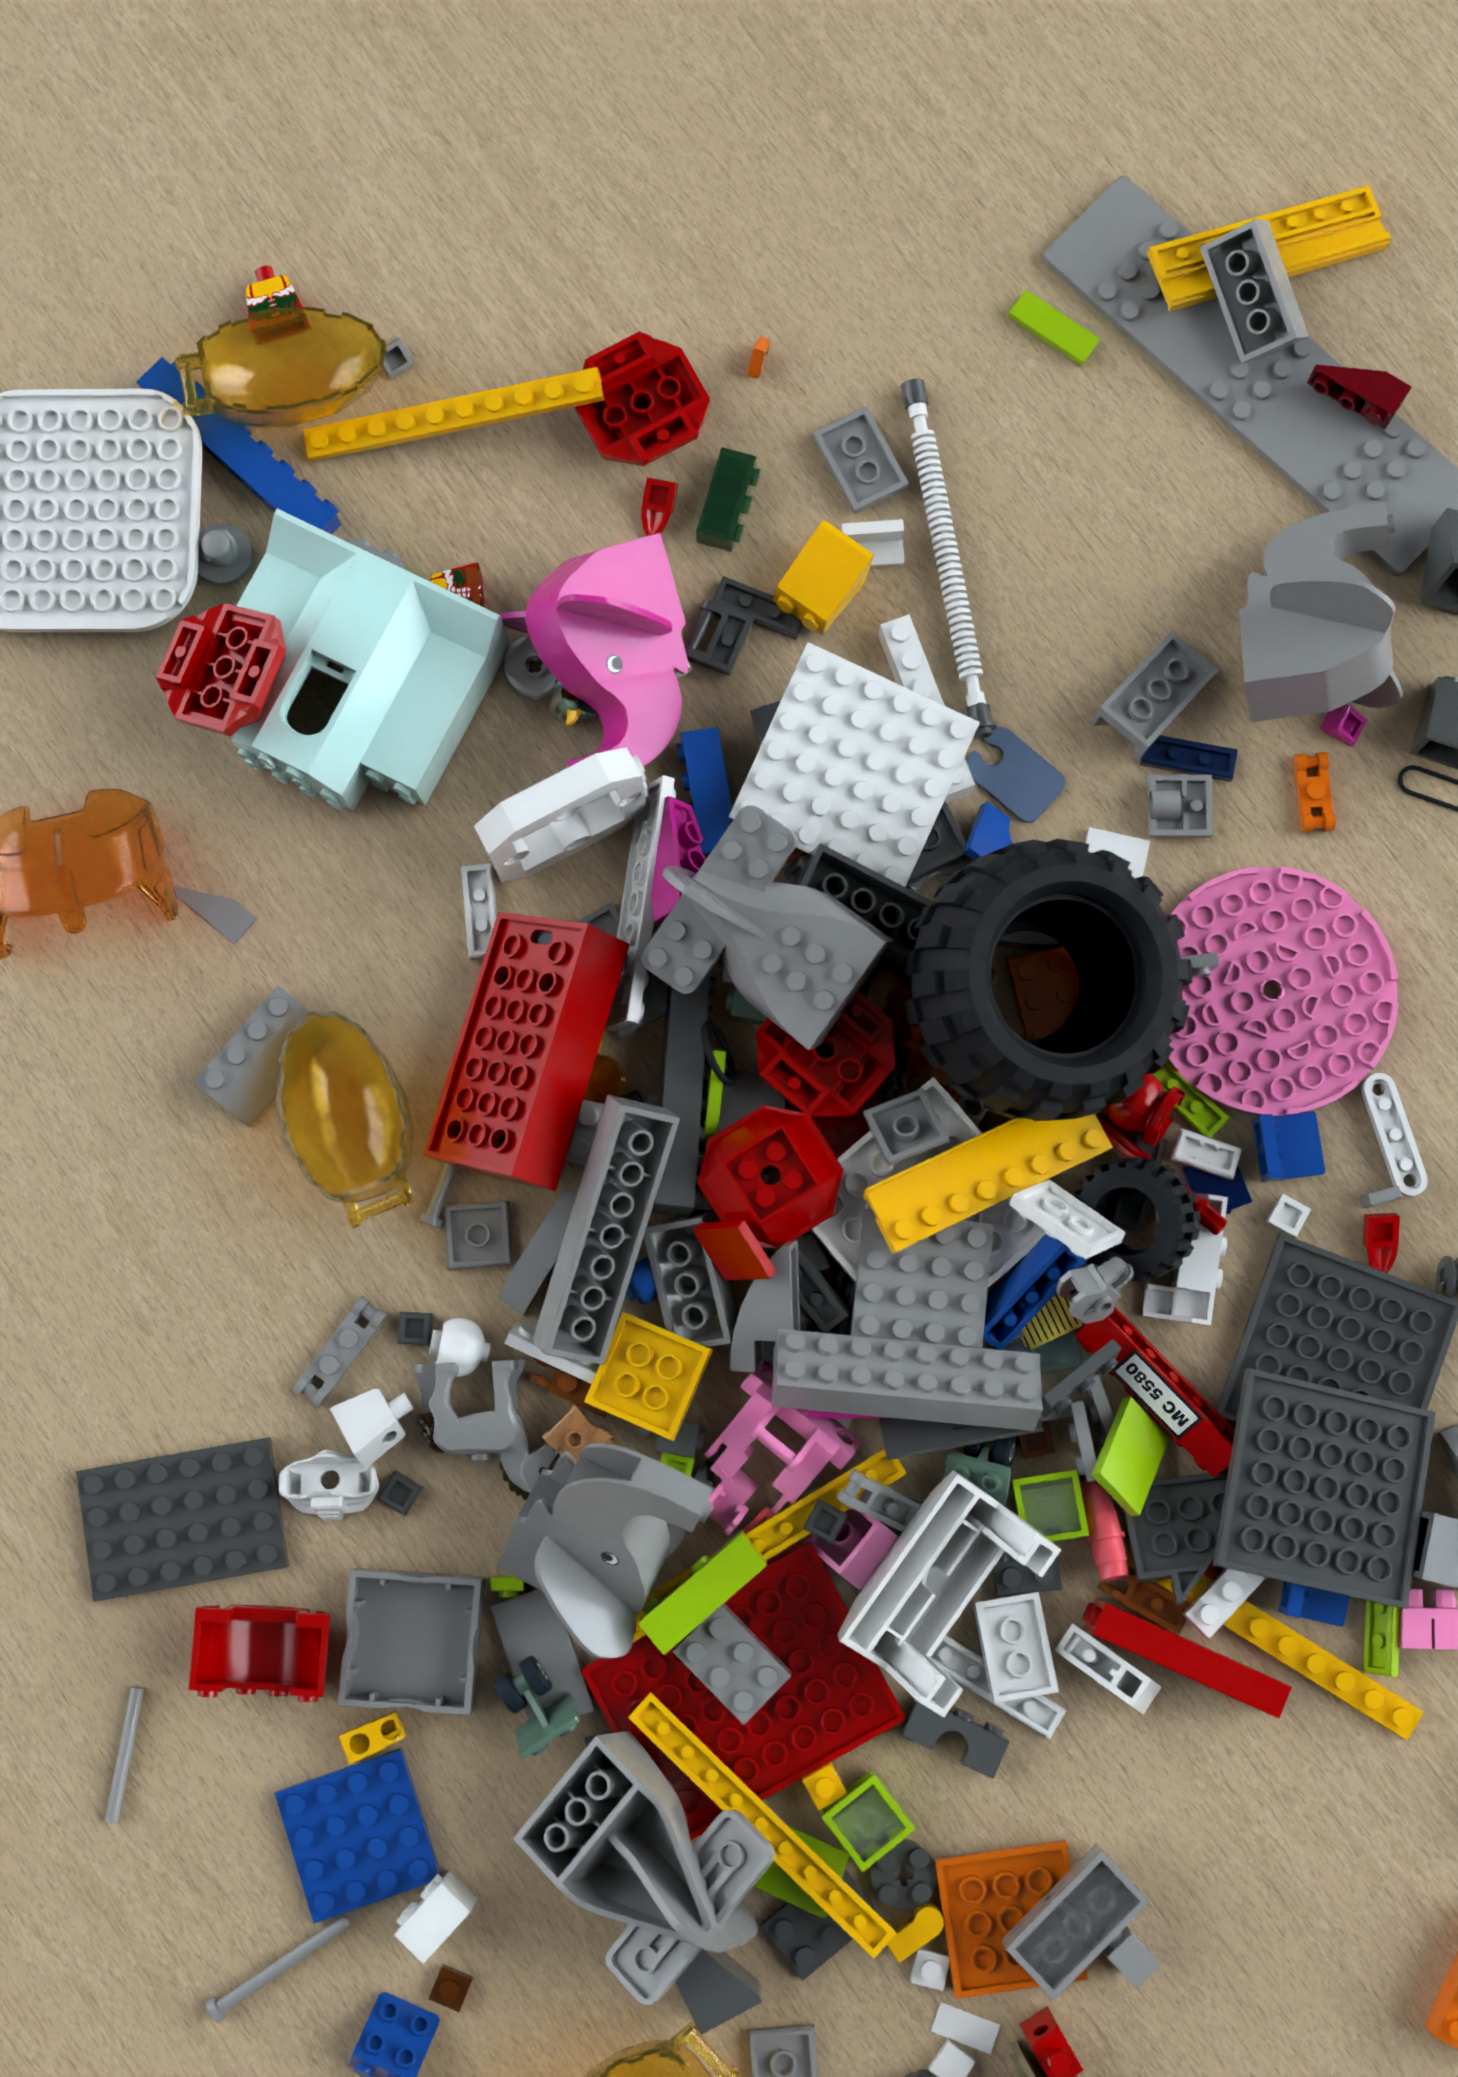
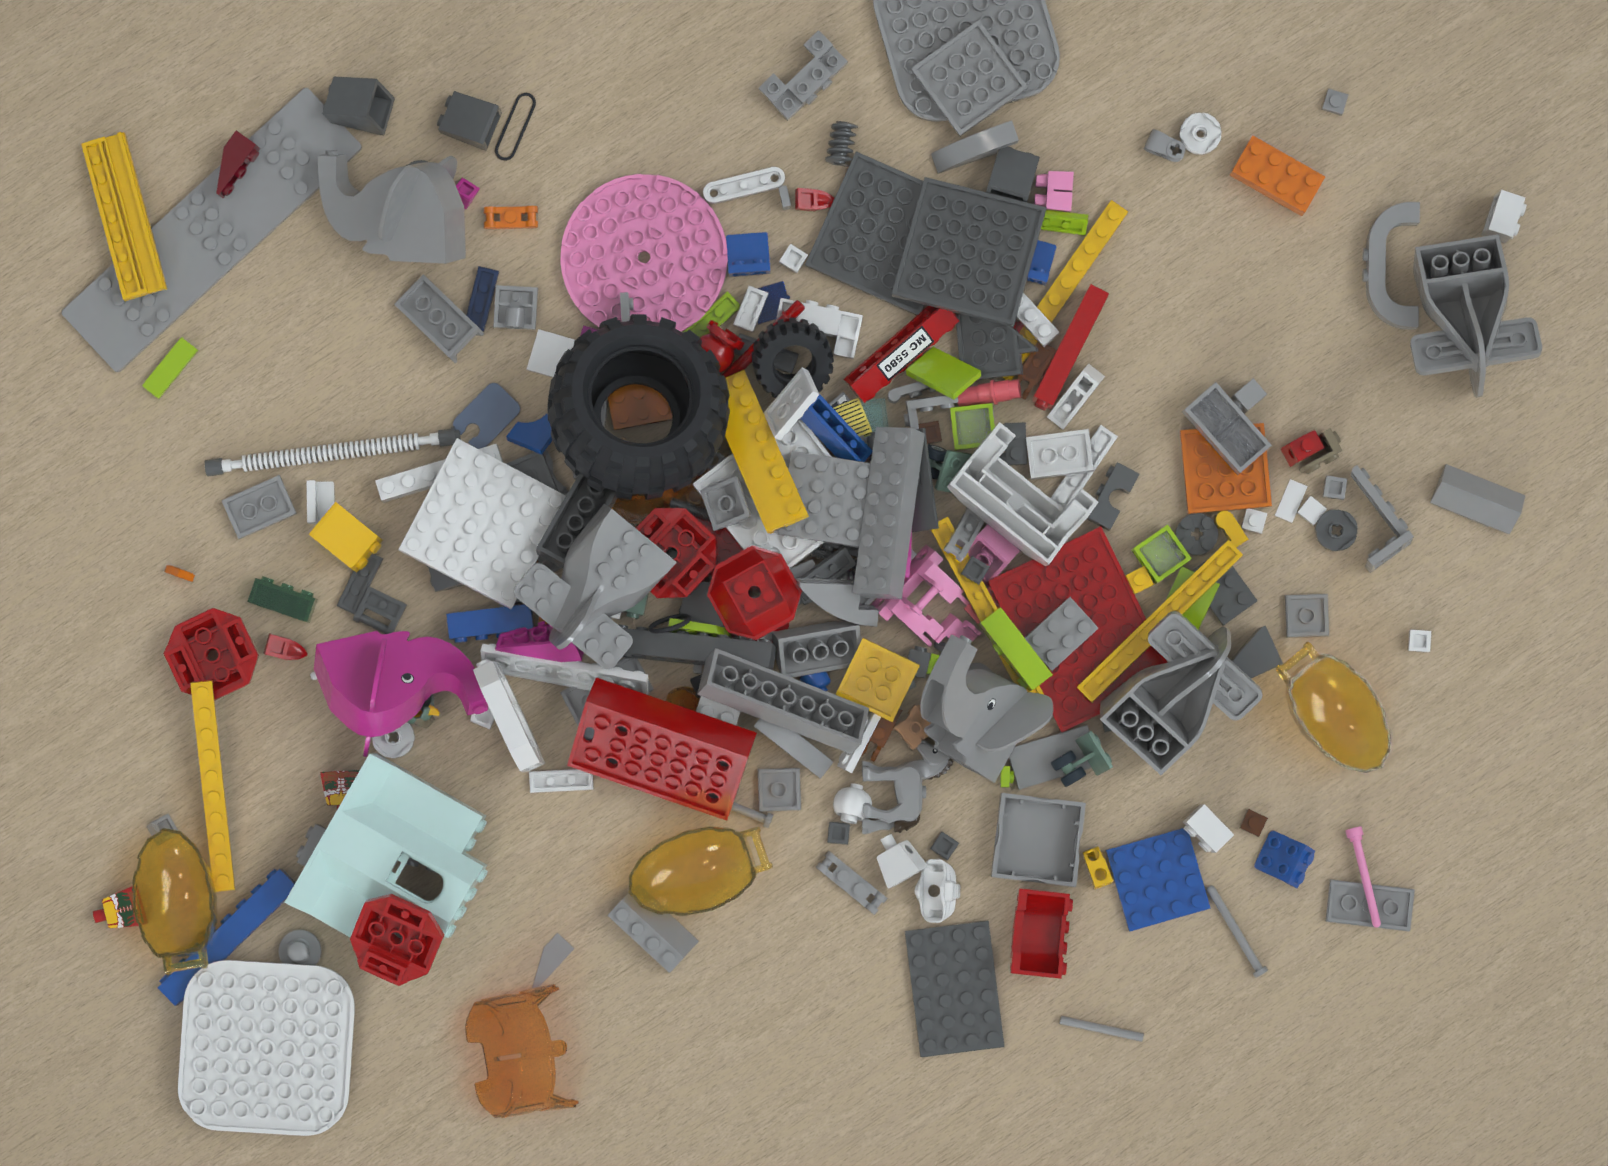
camera: 90 degrees left, 5 degrees up
(734, 1250) = (801, 618): red tile -> none
(1080, 1379) = (893, 401): dark grey plate -> none
(1094, 1289) = (837, 389): light grey hinge -> none
(1254, 291) = (160, 230): light grey slope -> none

